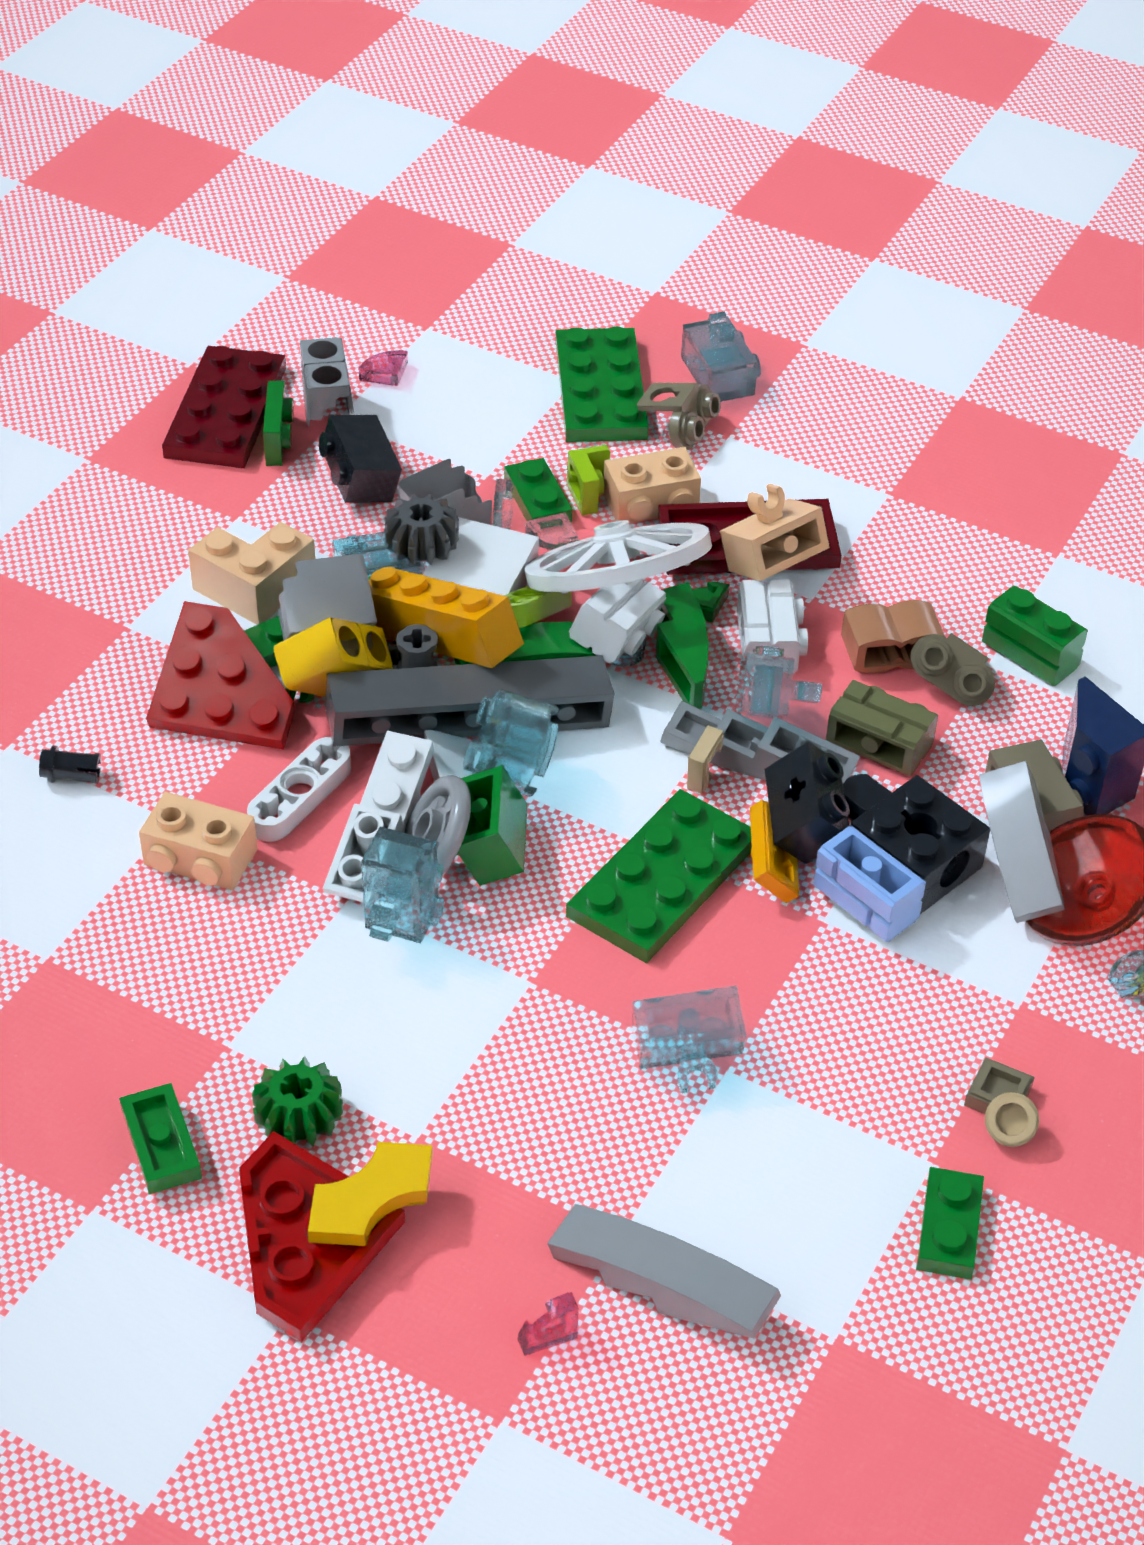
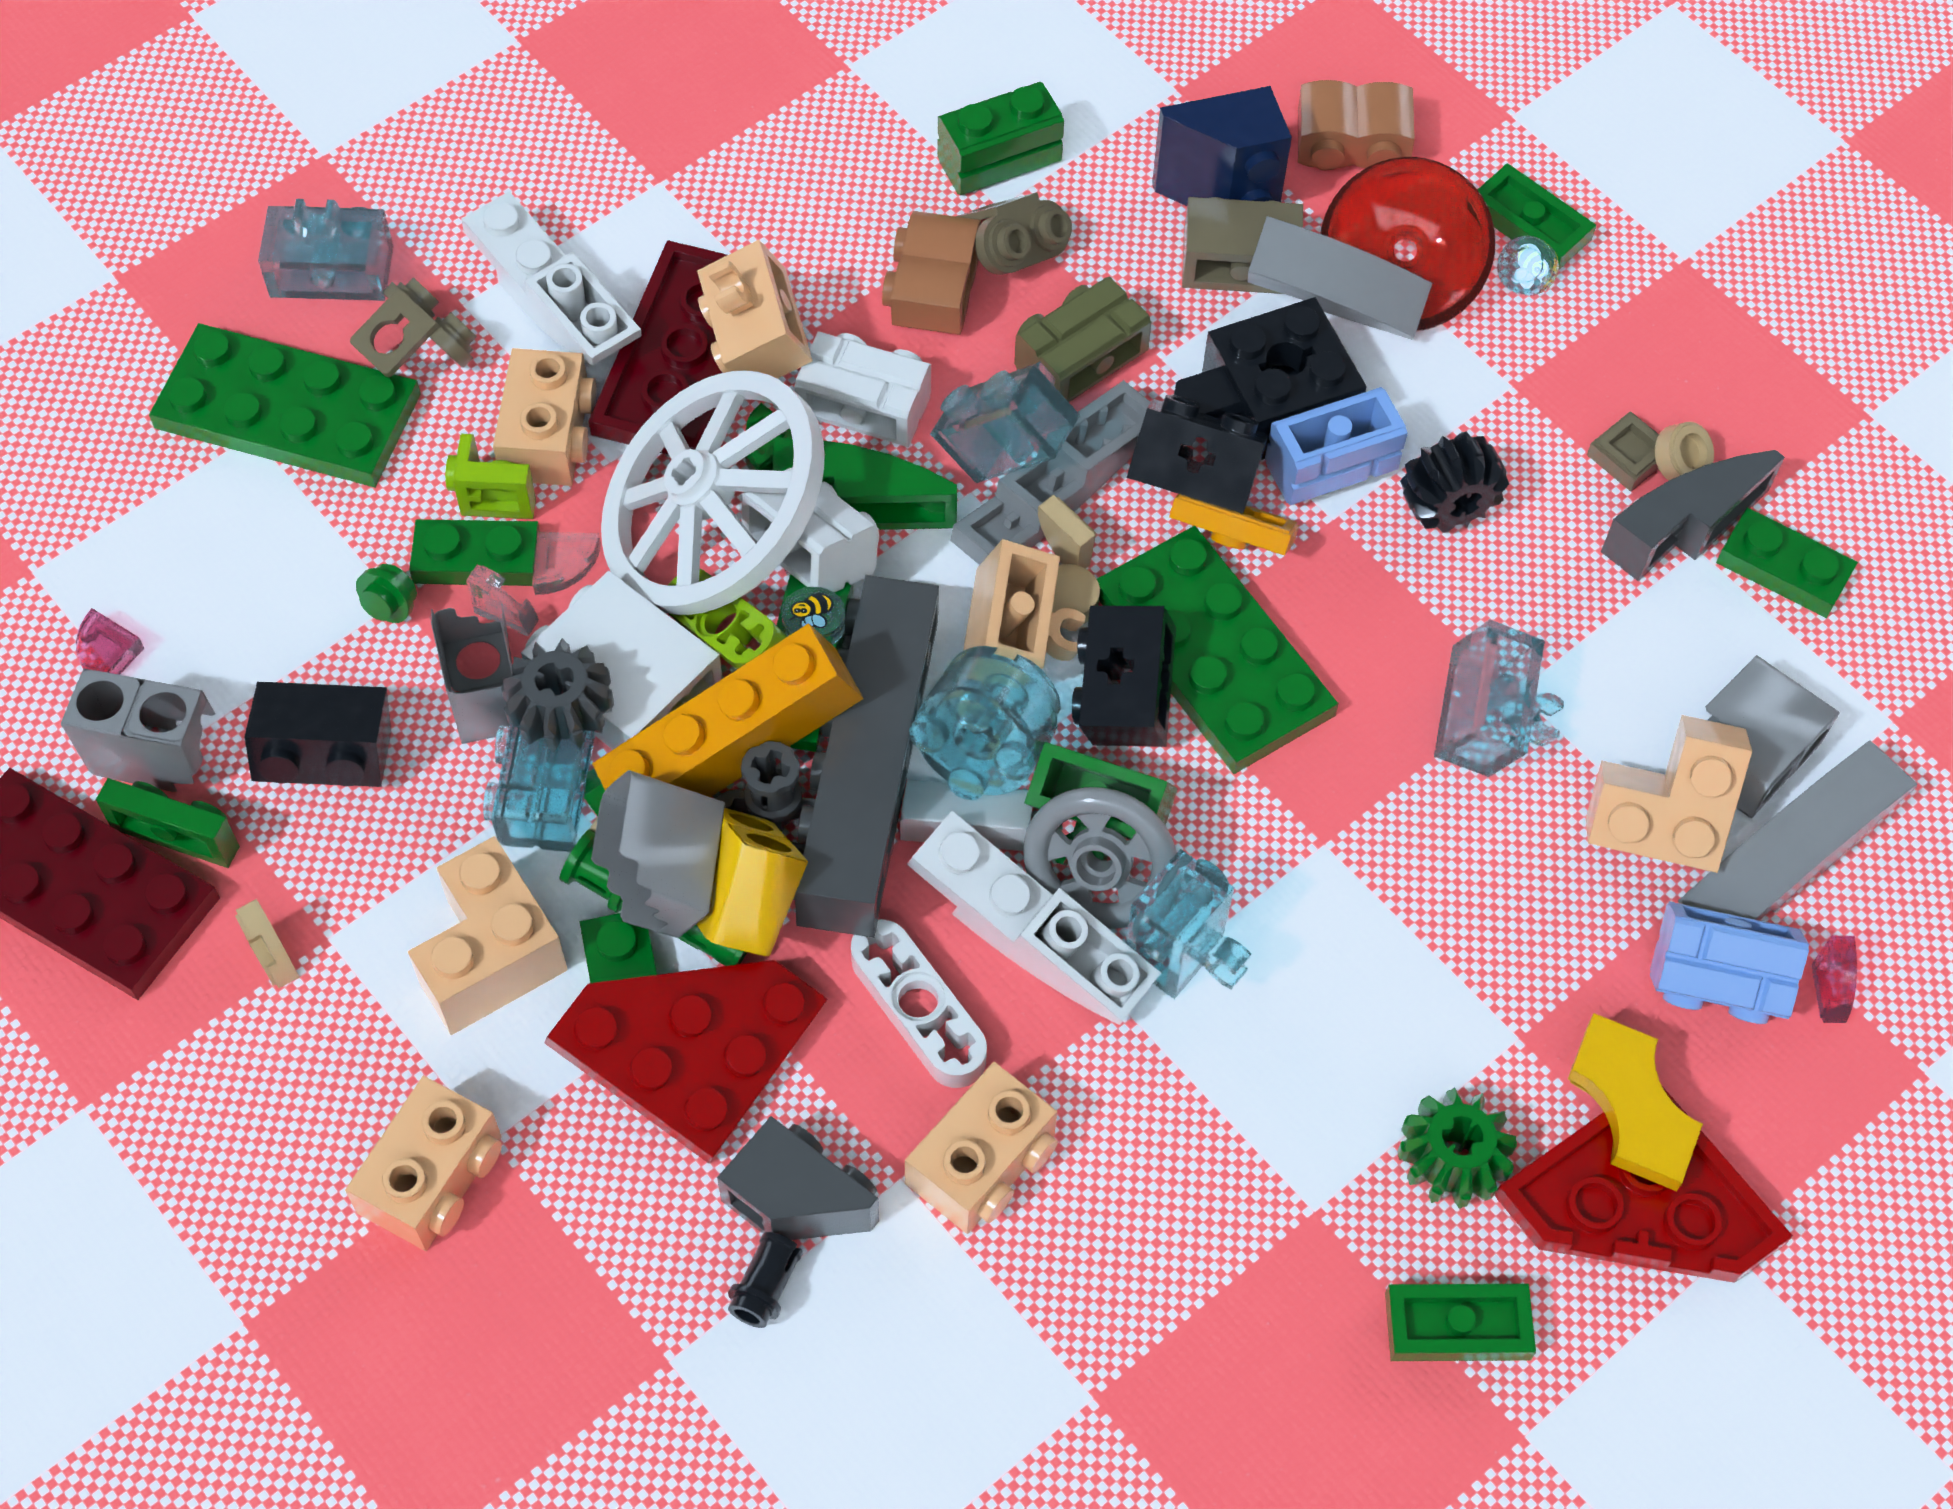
camera: 70 degrees left, 15 degrees up
(93, 591) = (426, 1164): none -> light nougat brick
(136, 756) = (794, 1190): none -> dark grey slope
(216, 488) = (266, 944): none -> tan tile
(480, 460) = (386, 593): none -> green plate
(524, 1234) = (1728, 963): none -> light blue brick
(546, 632) = (817, 607): none -> clear light blue tile
(597, 814) = (1140, 705): none -> black brick
(613, 743) = (1015, 606): none -> light nougat brick
(650, 1158) = (1679, 813): none -> light nougat brick
(661, 781) = (1076, 589): none -> tan tile
(755, 1219) = (1781, 724): none -> light grey piece
(759, 456) = (548, 284): none -> white slope
(878, 962) = (1454, 482): none -> black gear
(954, 1134) = (1689, 511): none -> dark grey slope

